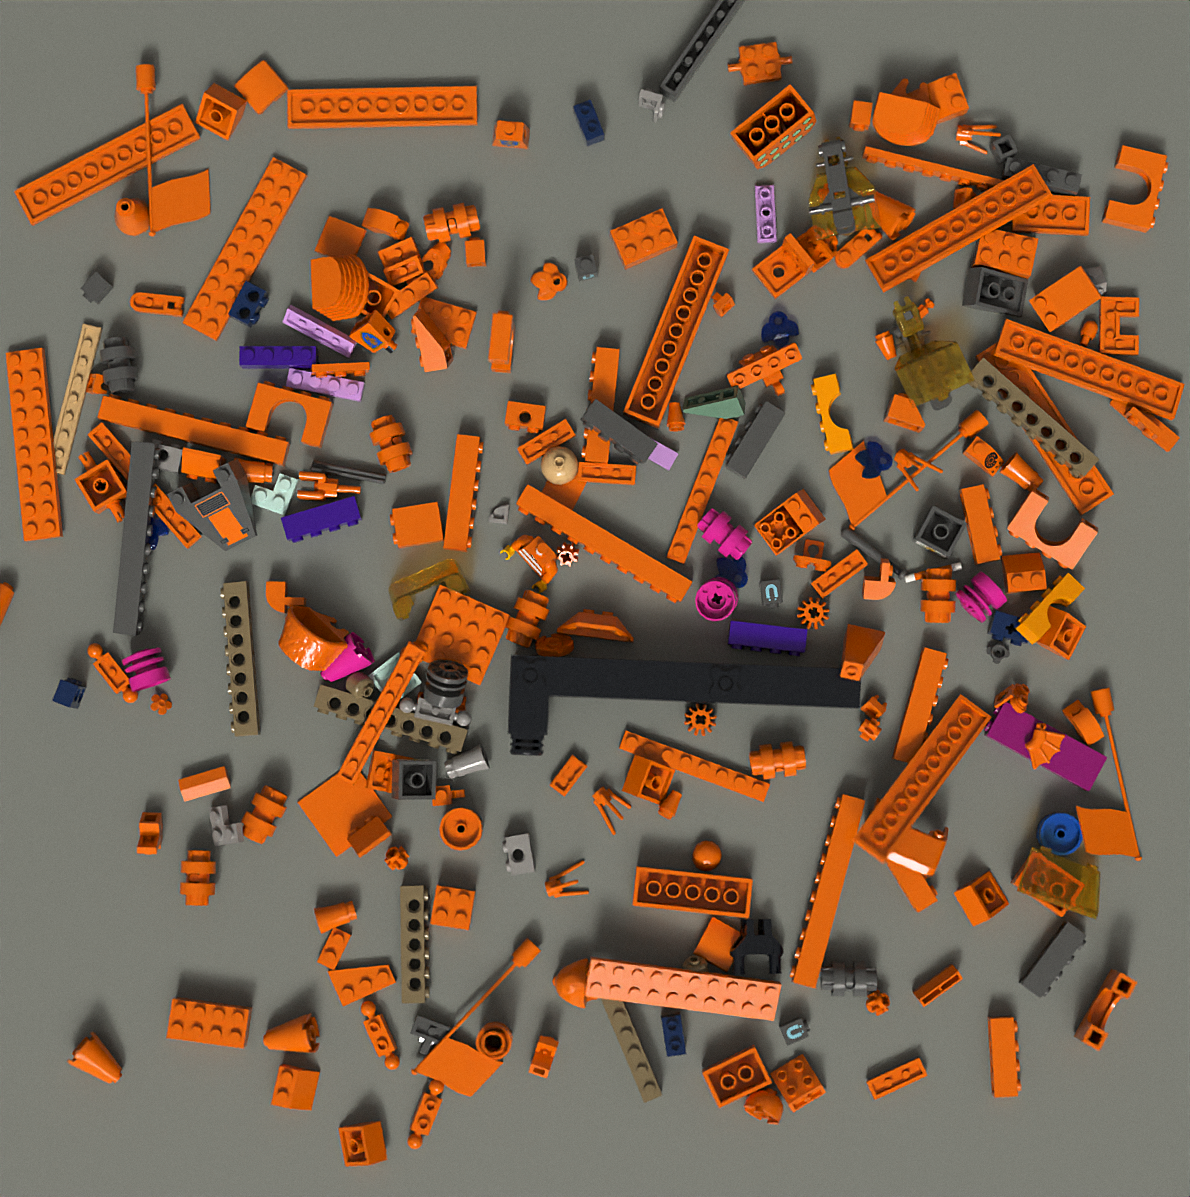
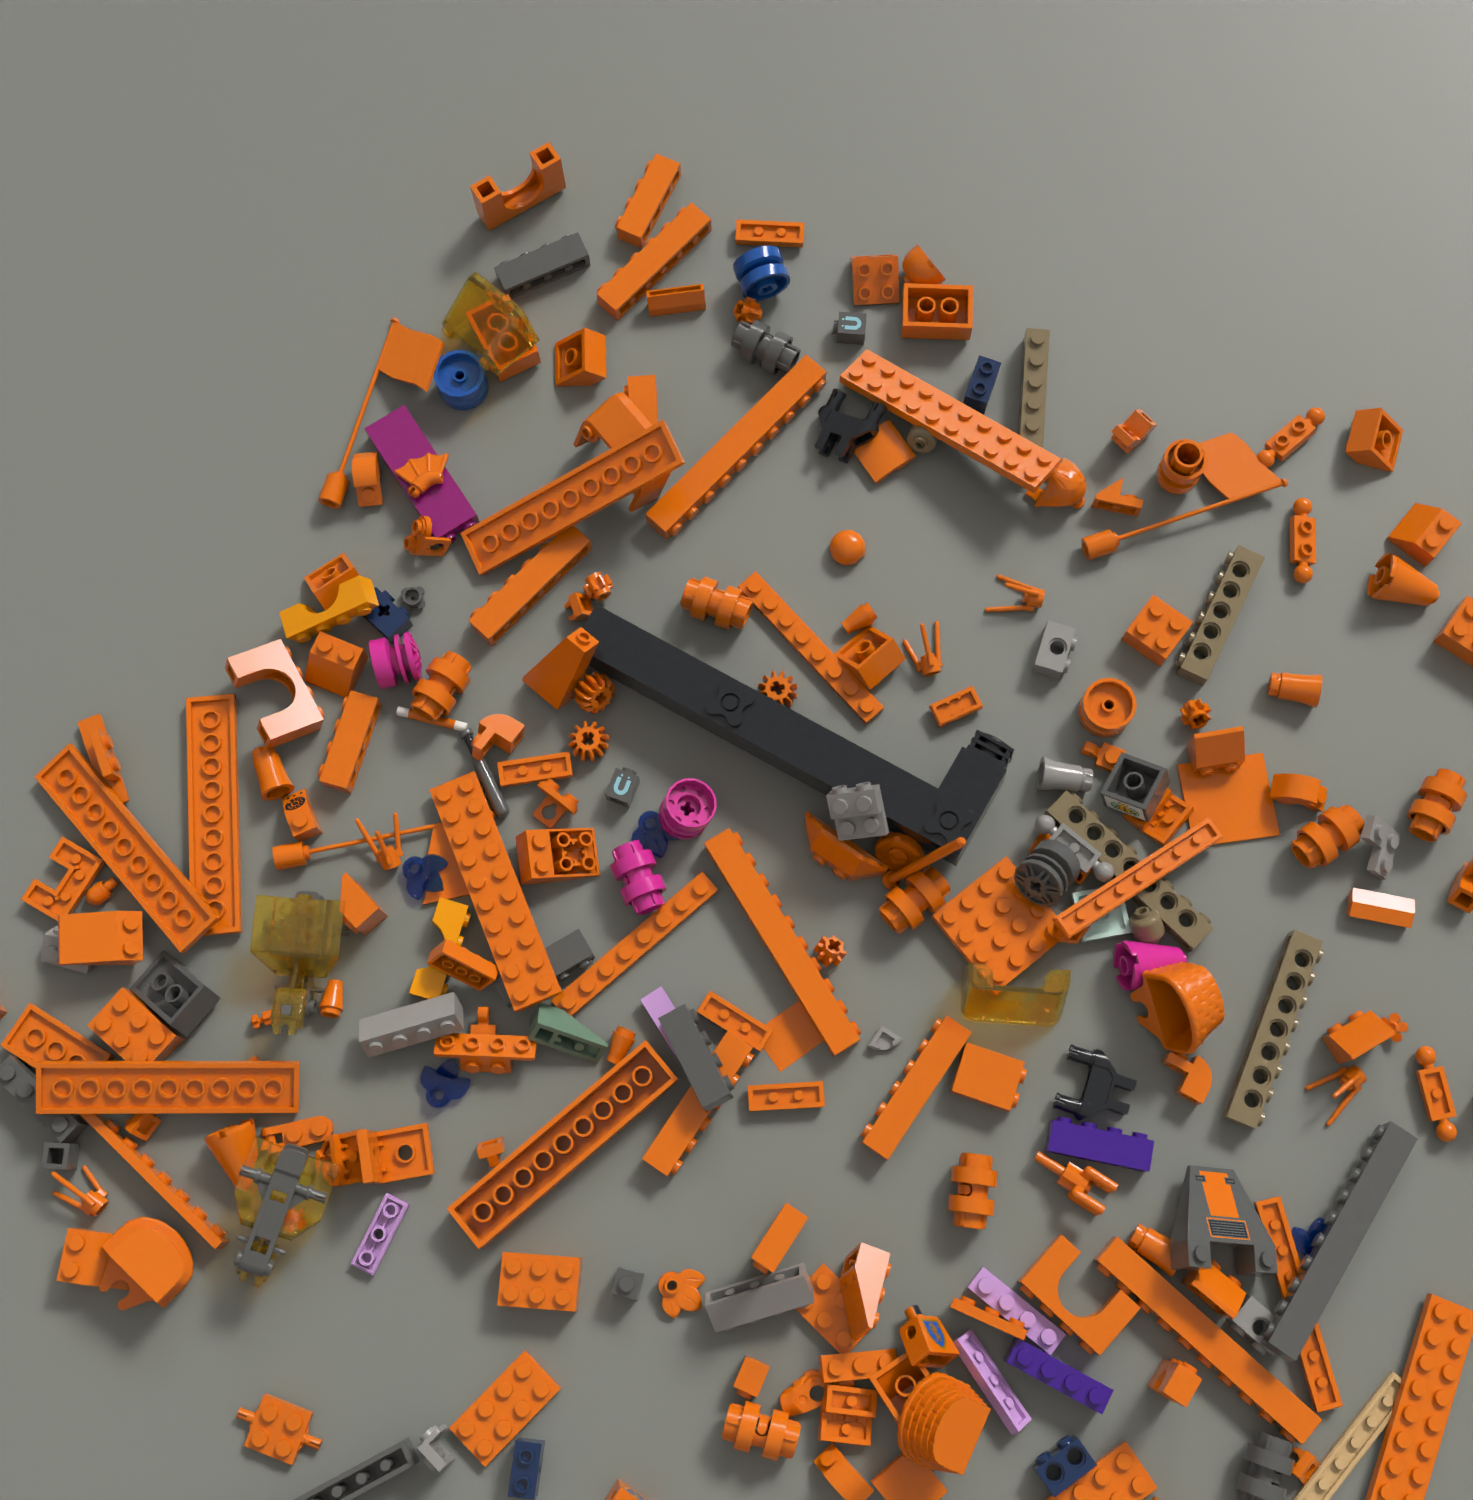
camera: 155 degrees left, 10 degrees down
(91, 482) = (1356, 1344): orange brick -> none
(146, 669) = (1395, 1073): dark pink wheel -> none
(172, 651) = (1350, 1080): none -> orange plant
(183, 682) = (1356, 1036): none -> orange slope
(202, 389) = (1175, 1381): none -> orange arch
(279, 498) = (1144, 1199): light aqua plate -> none
(298, 838) = (1299, 789): none -> orange brick
(334, 948) = (1311, 655): orange plate -> none
(340, 557) = (1097, 1088): none -> black connector
(349, 472) = (1039, 1186): dark grey axle -> none
(357, 983) = (1298, 605): orange wing -> none
(429, 1031) = (1246, 516): dark grey hinge -> none
(499, 297) = (759, 1297): none -> light grey brick
(516, 409) = (780, 1134): orange brick -> none
(534, 993) = (1111, 500): none -> orange slope
(537, 556) = (866, 966): orange torso -> none
(549, 628) = (891, 879): none -> orange bar
(559, 465) = (784, 1060): tan cylinder -> none
(595, 650) = (857, 811): none -> light grey plate
(622, 152) = (505, 1408): none -> orange plate
(692, 892) = (884, 515): orange brick -> none
(767, 637) = (654, 741): dark purple brick -> none
(774, 127) = (307, 1331): orange brick -> none
(809, 410) = (463, 965): none -> orange piece
(818, 473) = (495, 892): none -> orange plate
(822, 354) = (411, 1024): none -> light grey brick
(828, 648) = (594, 692): none -> orange gear
(860, 115) = (199, 1292): orange brick -> none
(883, 1036) = (761, 273): none -> blue wheel
(939, 532) = (398, 754): dark grey brick -> none
(971, 1008) = (653, 261): none -> orange brick
(1042, 419) = (191, 746): dark tan brick -> none

